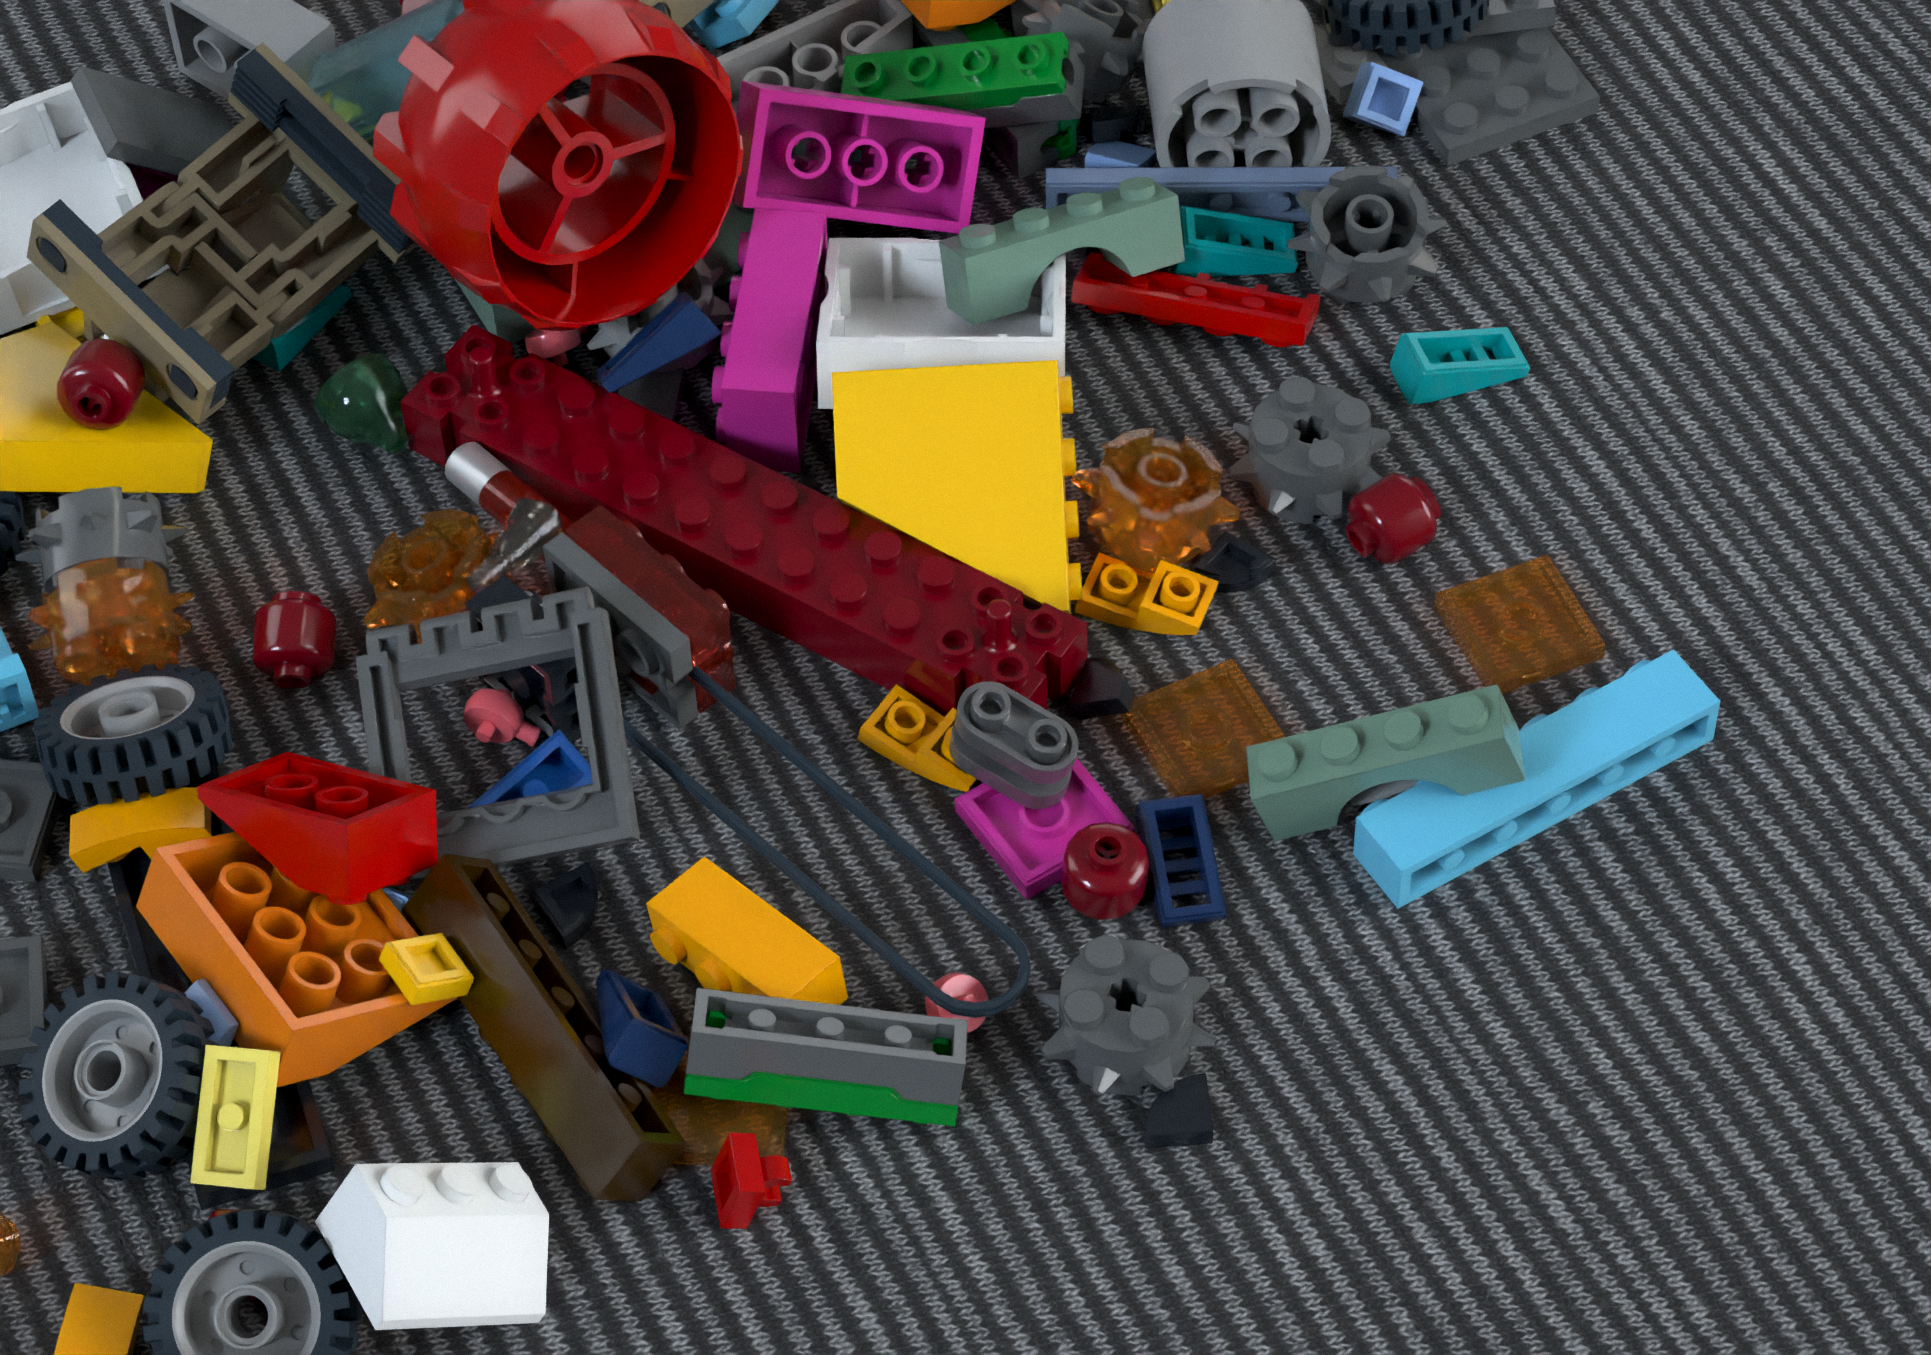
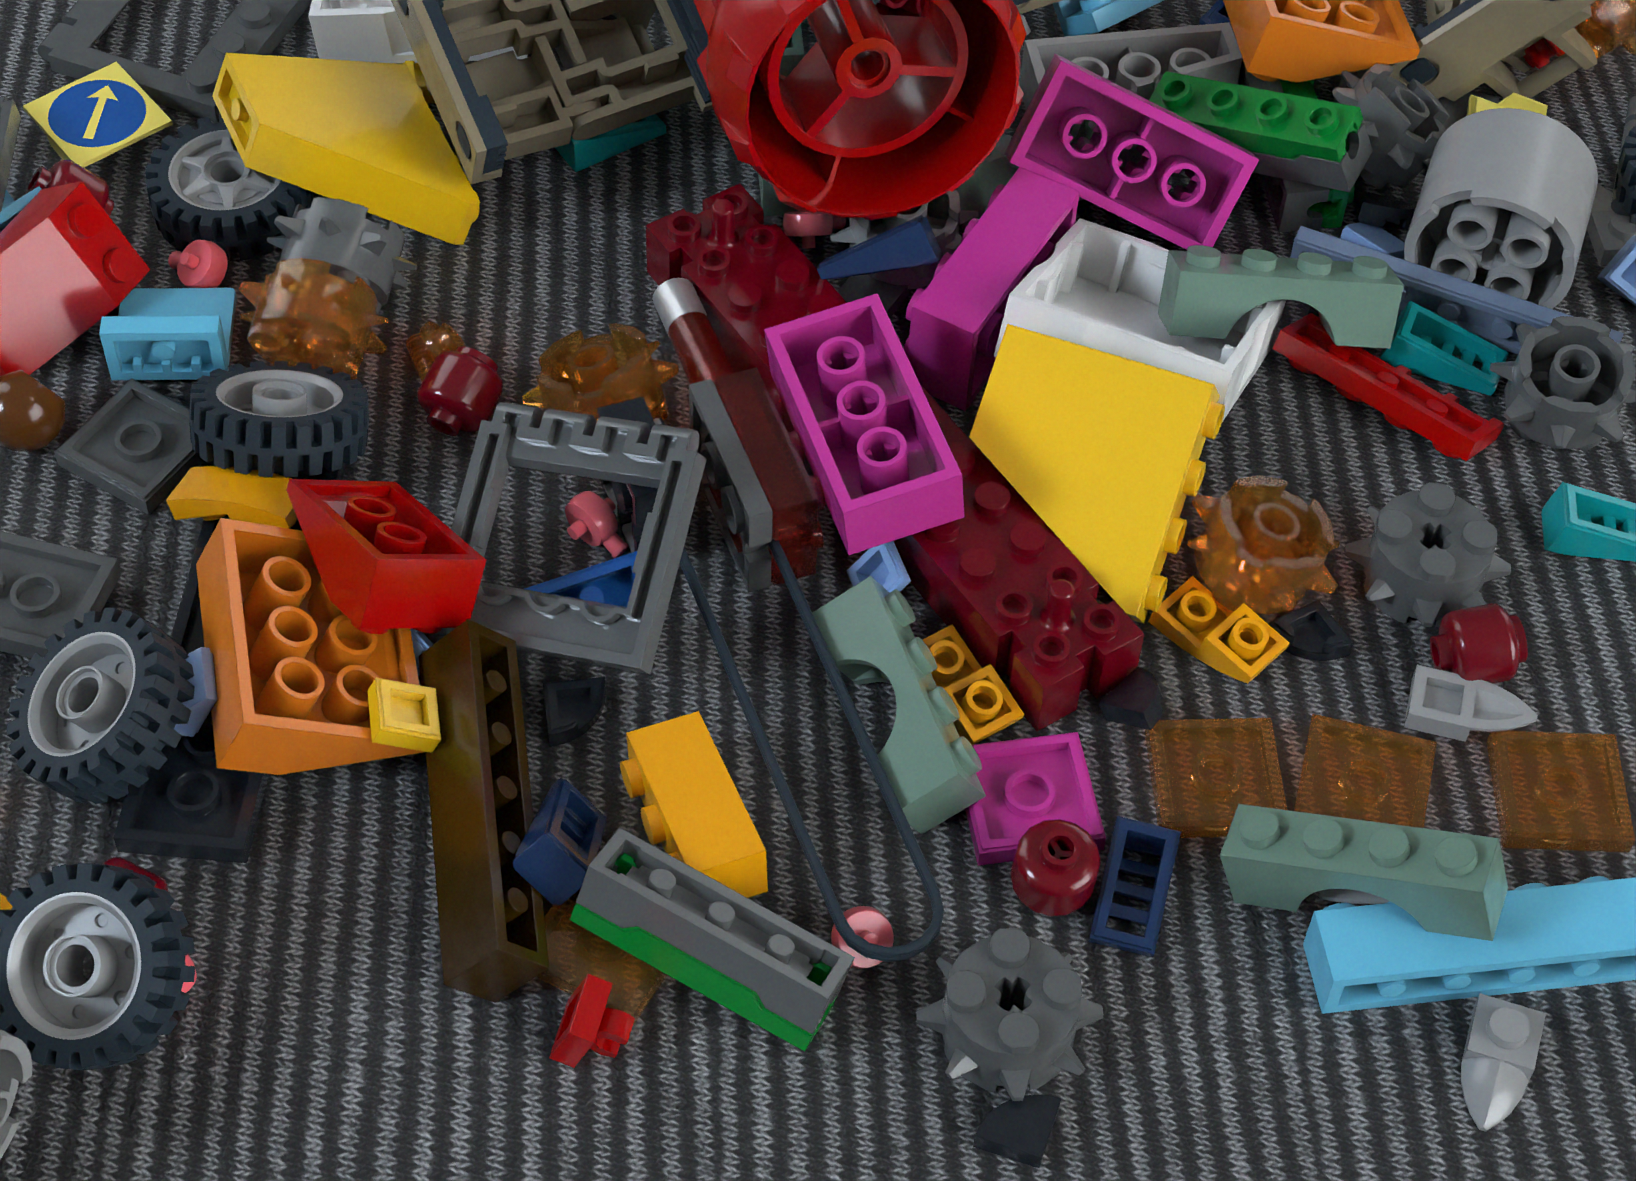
camera: 20 degrees right, 0 degrees up
(101, 384) = (400, 120): dark red head -> none
(235, 1117) = (169, 781): light yellow plate -> none
(236, 608) = (431, 342): none -> clear orange plate
(365, 403) = (618, 214): clear green helmet -> none
(441, 1243) = (276, 971): white slope -> none
(519, 542) = (671, 374): clear smoke cone -> none
(735, 520) = (865, 424): none -> dark pink brick
(802, 665) = (883, 565): none -> light blue slope
(933, 815) = (924, 755): none -> sand green arch
(1013, 745) = (1022, 718): flat silver brick -> none
(1338, 676) = (1364, 773): none -> clear orange tile
(1393, 584) = (1453, 706): none -> light grey plate
(1568, 884) = (1498, 1058): none -> light grey plate

